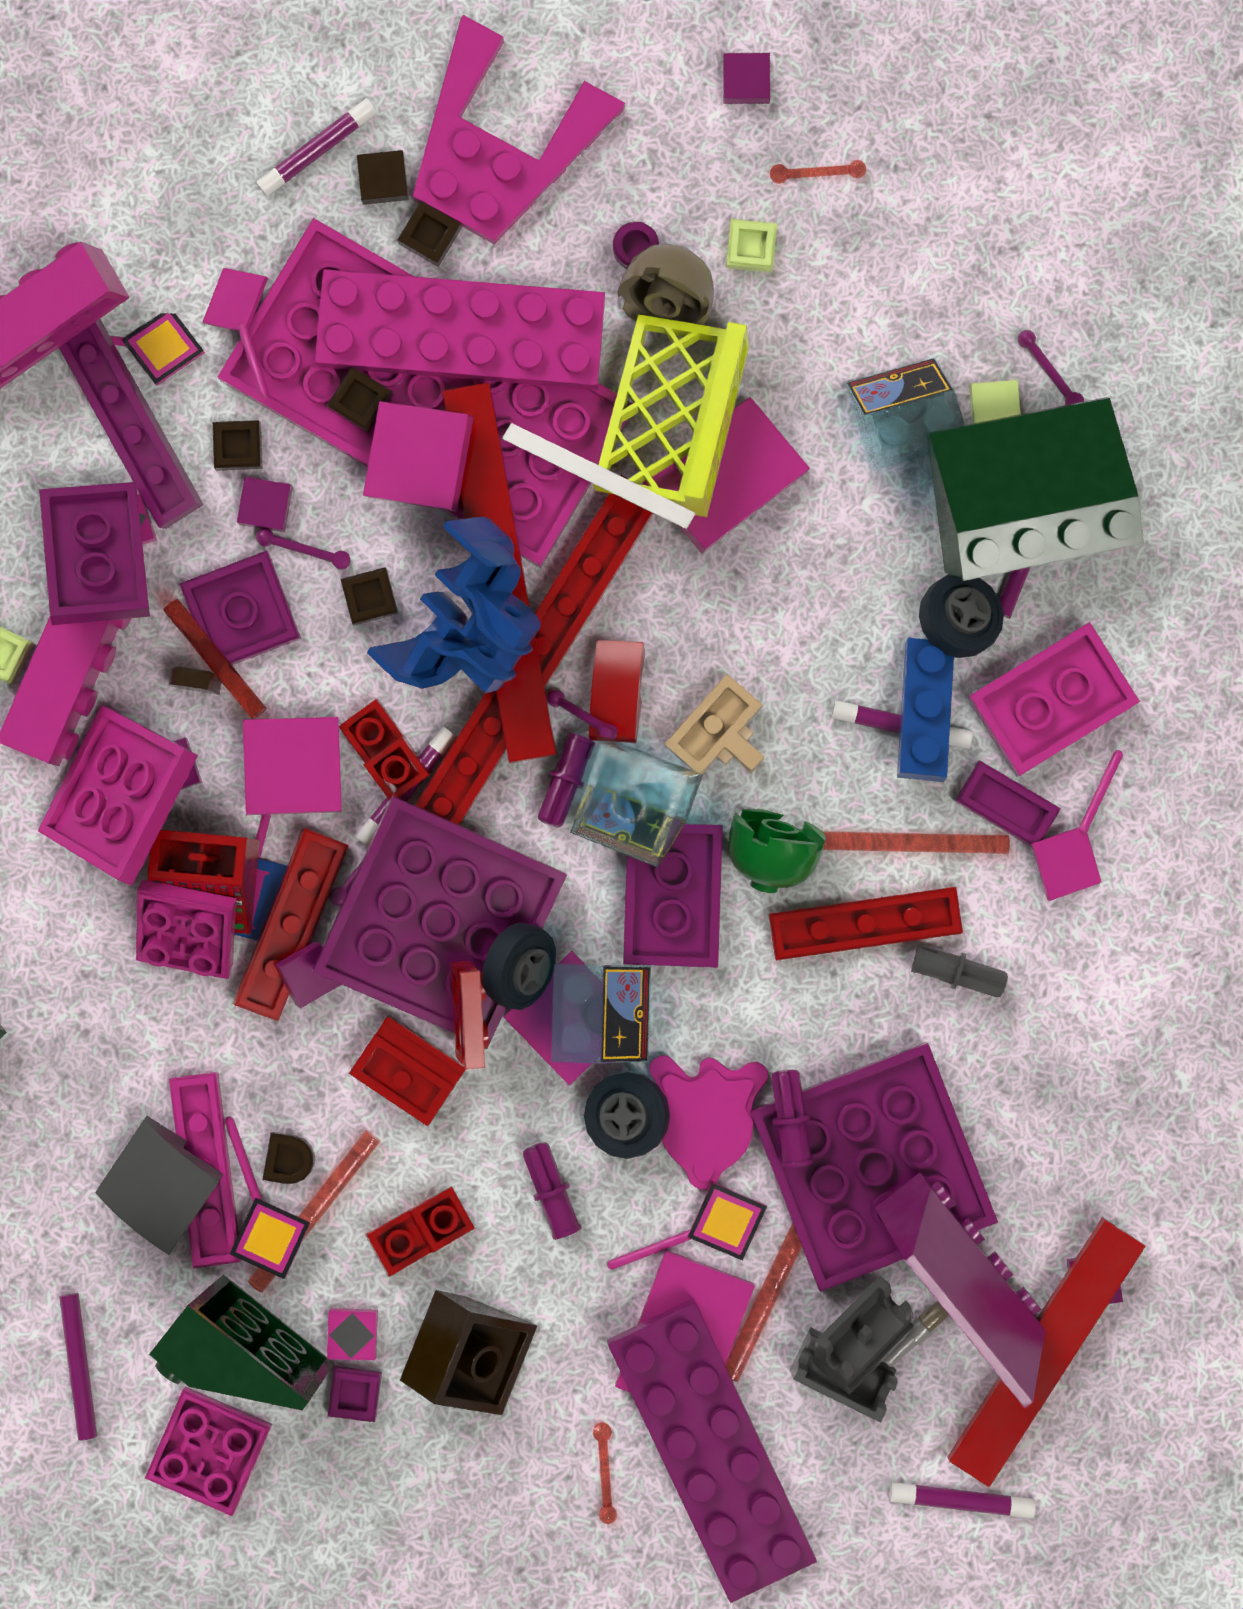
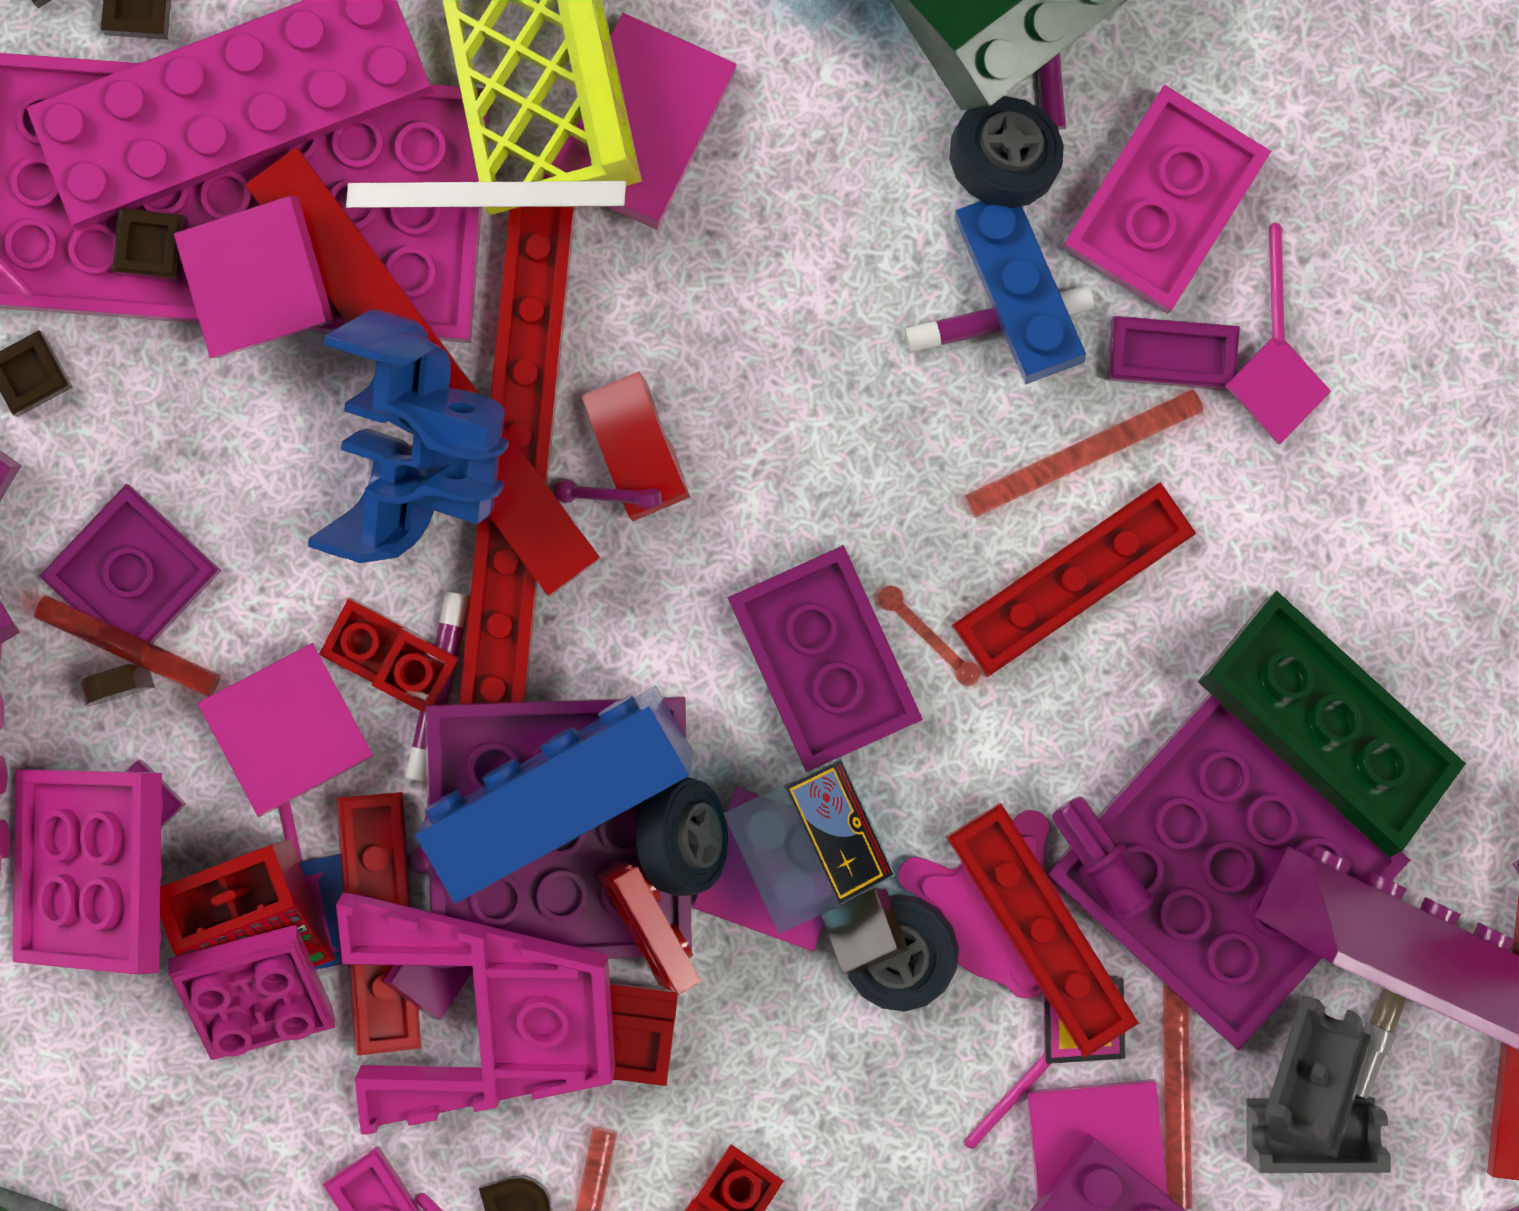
camera: 30 degrees left, 0 degrees up
(264, 504) = (96, 429): magenta tile -> none
(340, 559) = (221, 451): magenta hinge -> none
(368, 1031) = (537, 1009): none -> dark pink wing
(369, 596) = (279, 478): dark brown tile -> none
(450, 897) = (556, 794): none -> blue wedge
(551, 1190) = (854, 1089): magenta axle -> none
(565, 779) = (627, 583): magenta axle -> none
(609, 1088) = (864, 931): none -> tile
(635, 802) = (725, 569): clear light blue slope -> none
(718, 729) = (782, 432): tan hinge -> none
(728, 1146) = (1042, 930): none -> red tile
(763, 950) = (892, 600): none -> clear red hinge
(773, 851) = (920, 545): green cylinder -> none
(959, 971) = (1214, 581): dark grey axle -> none
(990, 1105) = (1332, 724): none -> dark green plate

